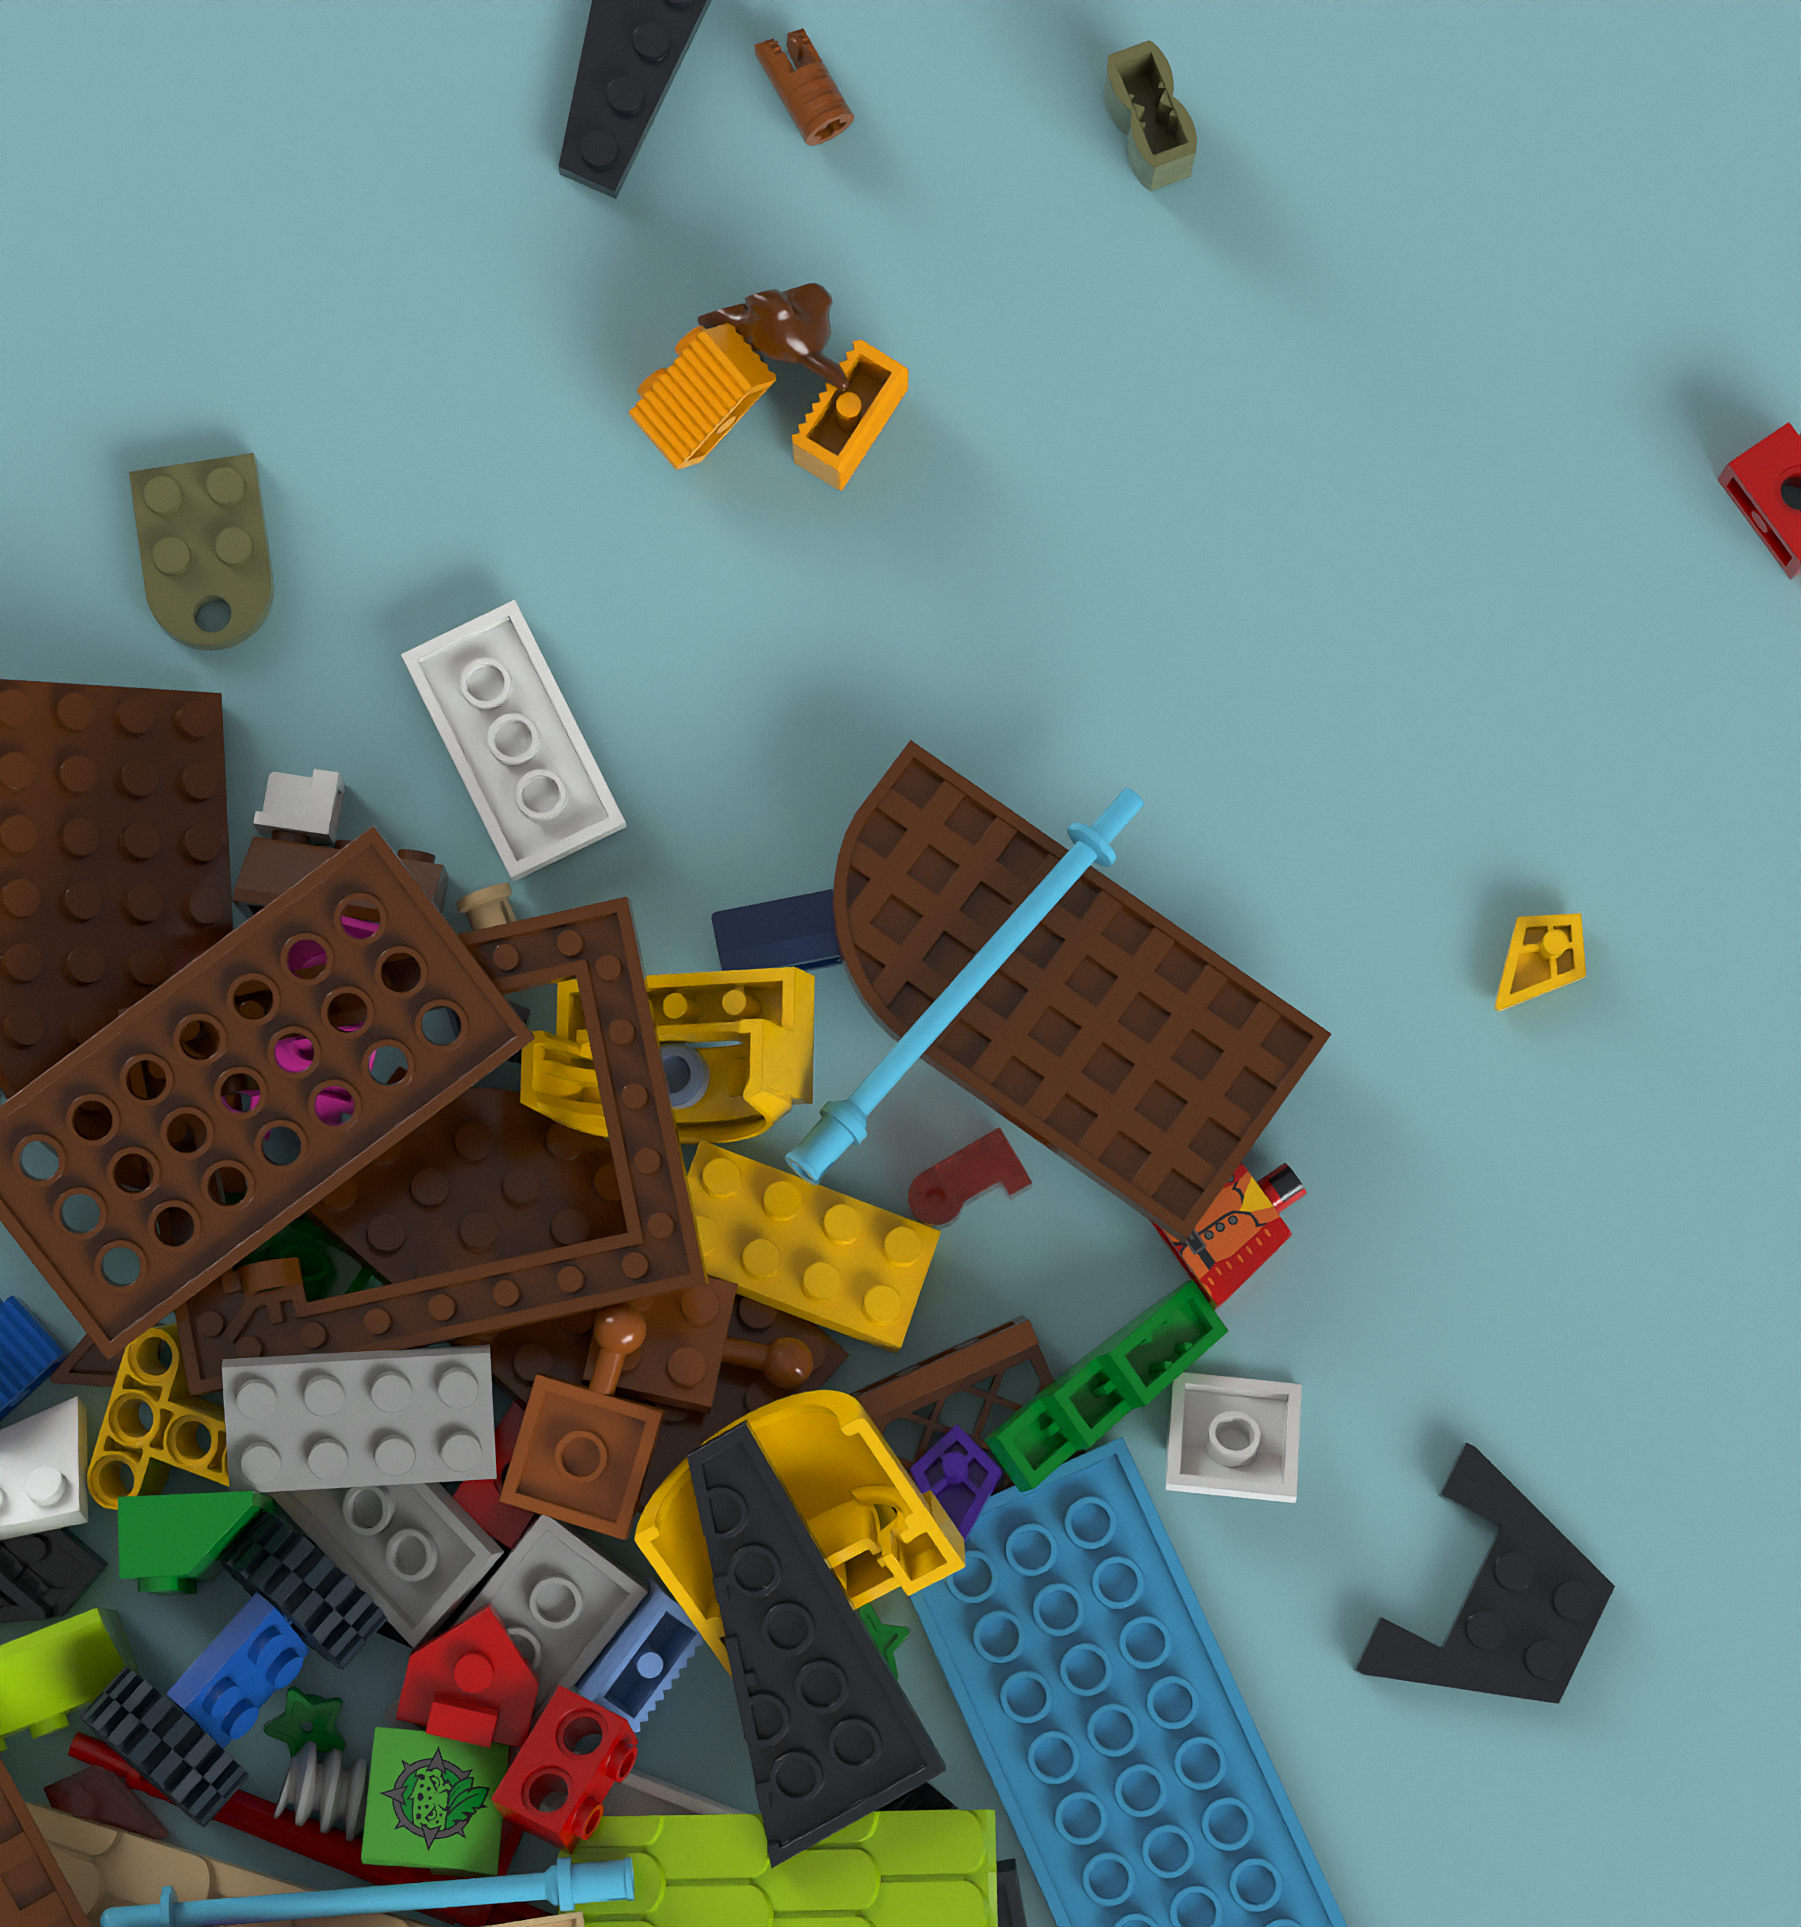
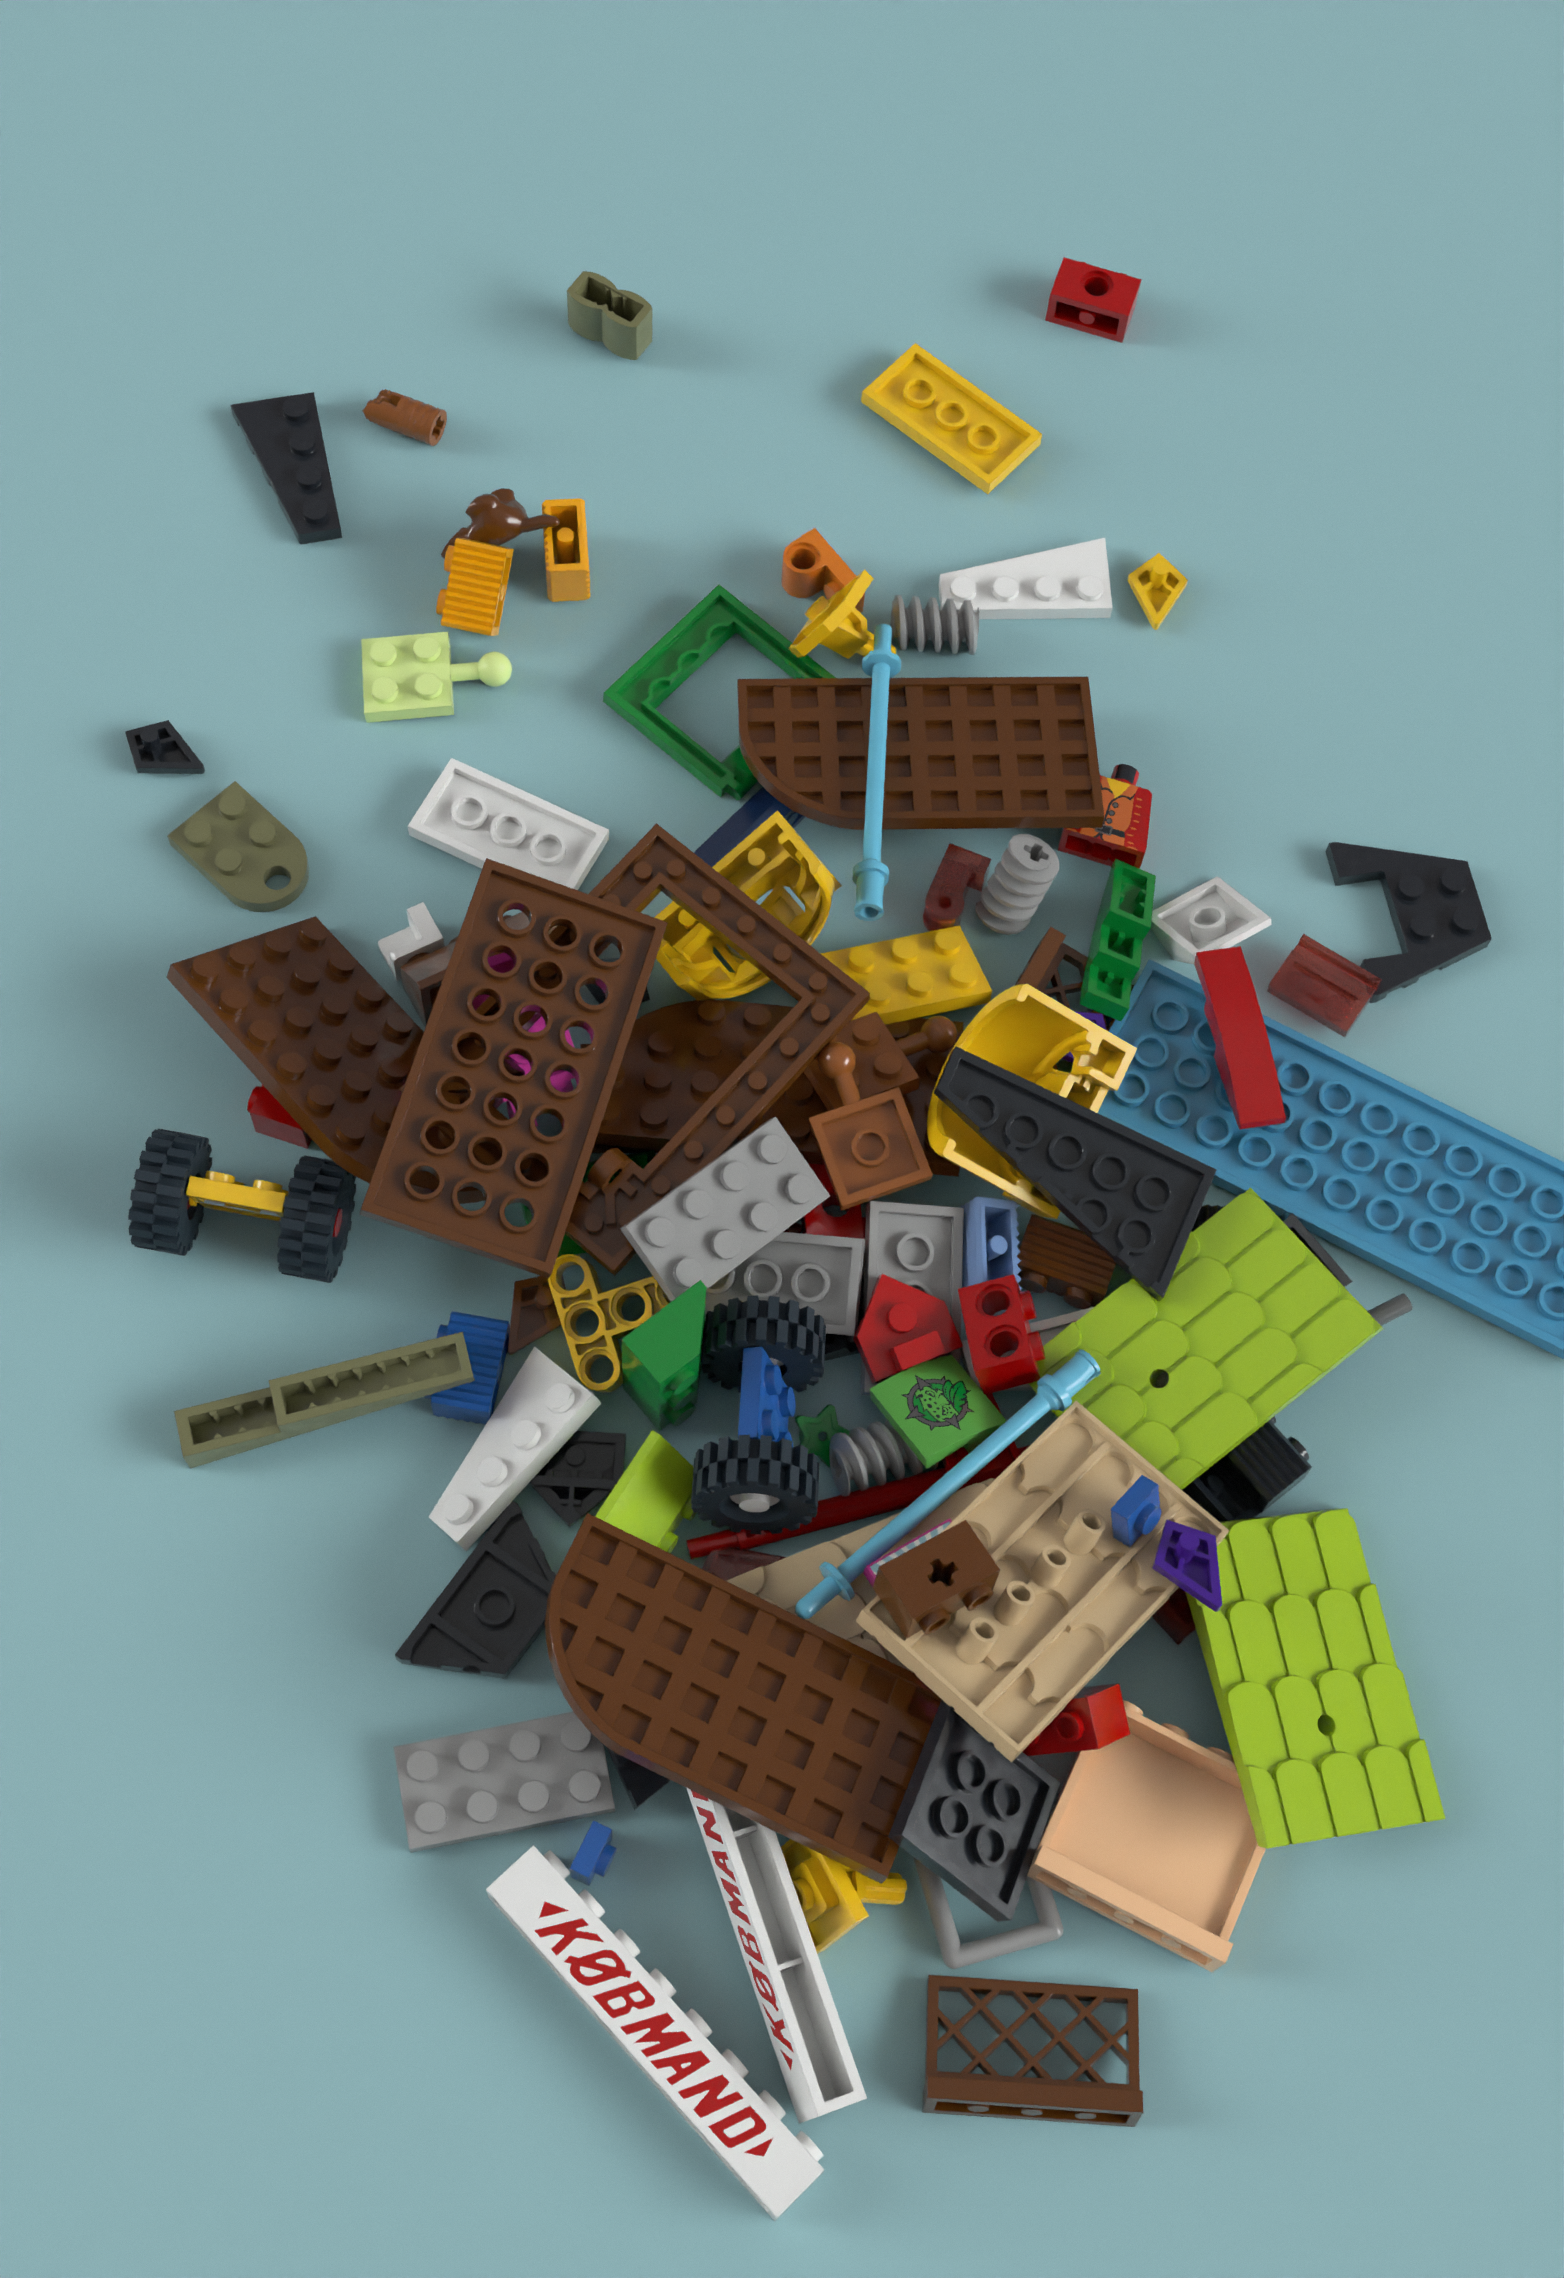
camera: 40 degrees left, 15 degrees down
(201, 352) = (162, 750): none -> black piece
(558, 451) = (415, 676): none -> yellowish green plate
(708, 1712) = (1063, 1263): none -> reddish brown brick
(883, 647) = (676, 659): none -> green hinge
(1034, 1239) = (1017, 884): none -> light grey piece
(1090, 747) = (838, 623): none -> yellow piece
(1132, 1618) = (1240, 1038): none -> red slope
(1147, 653) = (822, 568): none -> orange plate
(1217, 823) = (934, 624): none -> light grey piece
(1304, 1617) = (1324, 985): none -> clear red plate
(1402, 852) = (1039, 585): none -> white wing
(1473, 546) = (951, 418): none -> yellow plate

